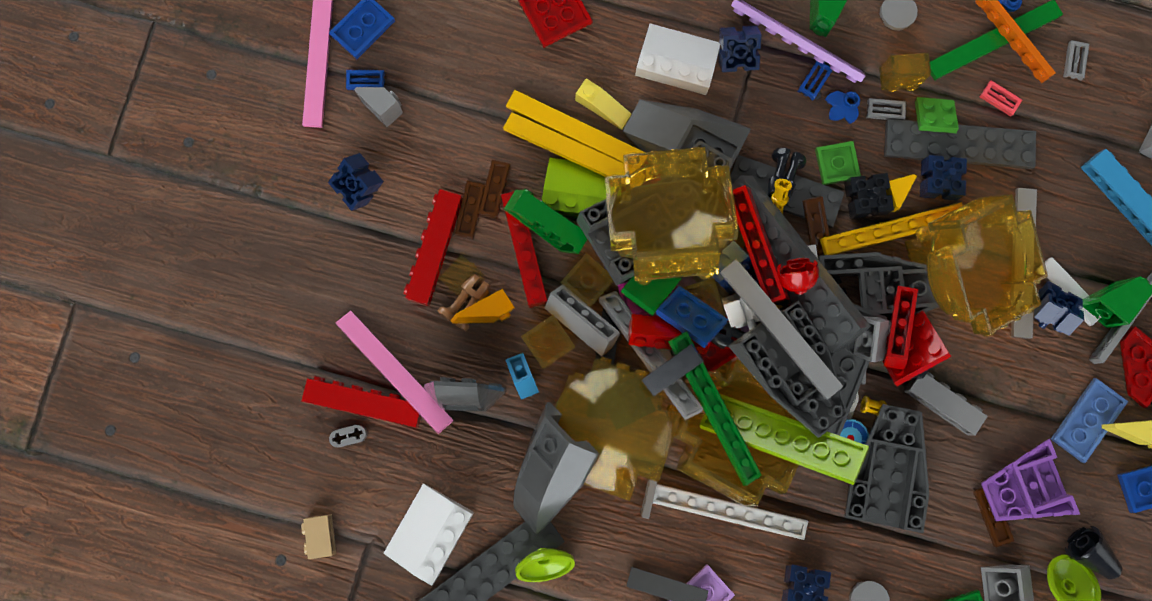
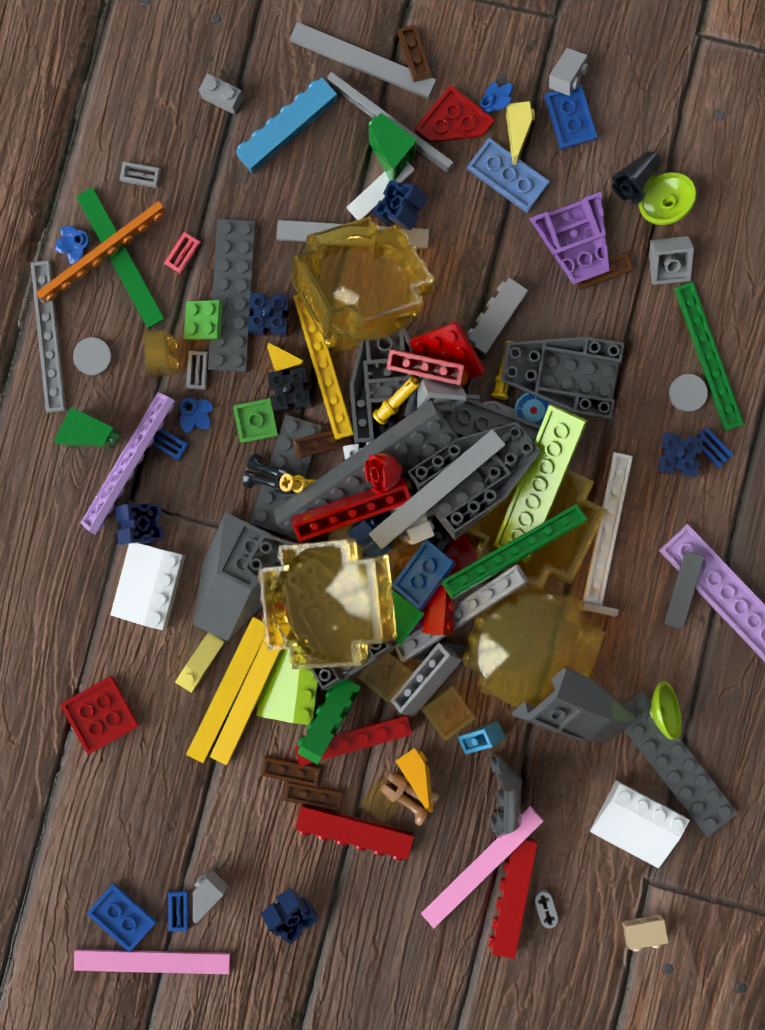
camera: 80 degrees left, 5 degrees up
(672, 369) = (480, 595): black tile -> none
(858, 291) = (391, 405): none -> yellow pin

